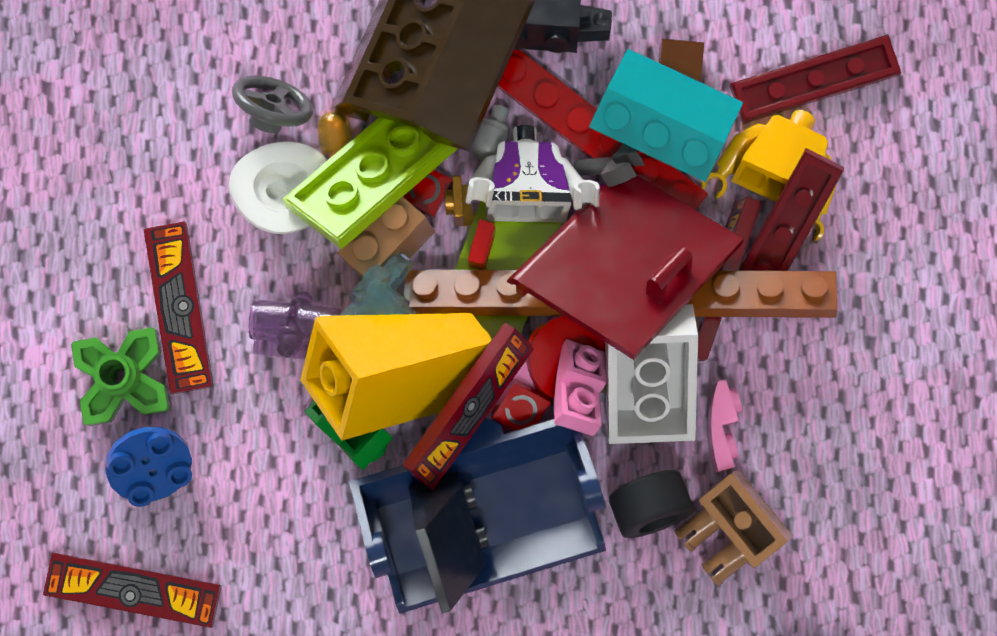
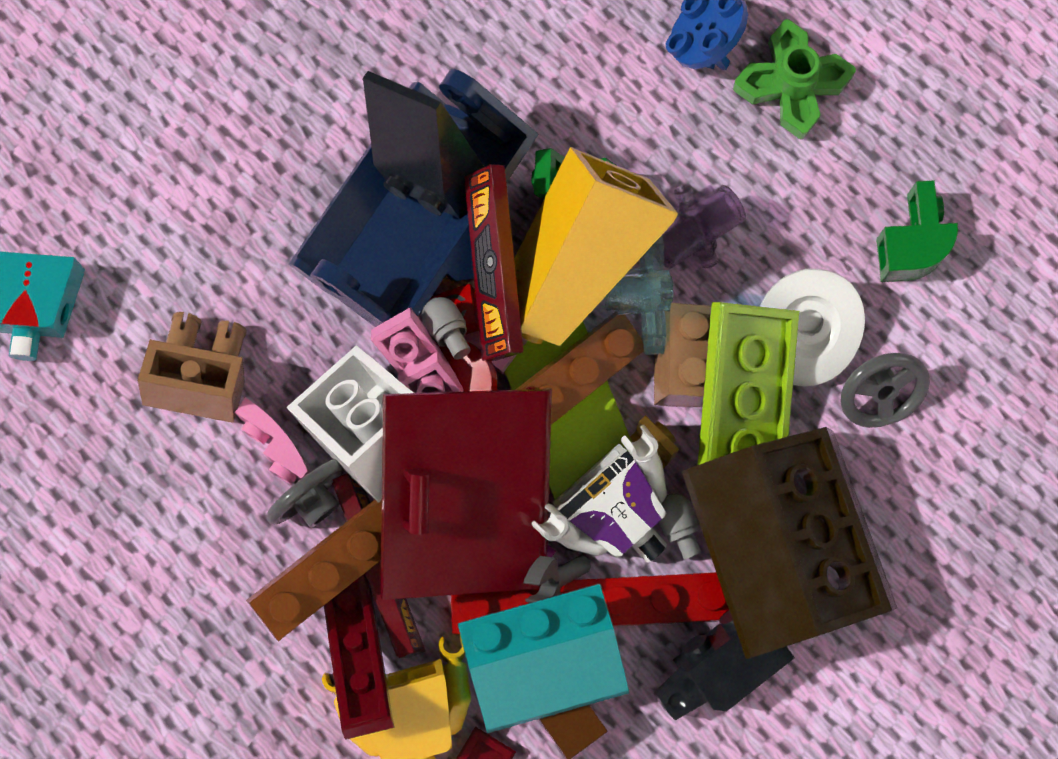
camera: 135 degrees right, 5 degrees down
(149, 175) = (916, 249): none -> green brick
(178, 308) = (801, 170): tile -> none
(333, 132) = (810, 411): clear yellow cylinder -> none
(429, 193) = (686, 429): red tile -> none
(481, 245) = (603, 417): red tile -> none
(538, 395) = (446, 325): none -> light grey cylinder
(651, 503) = (280, 327): black tyre -> none
(732, 363) = (308, 497): none -> dark grey piece

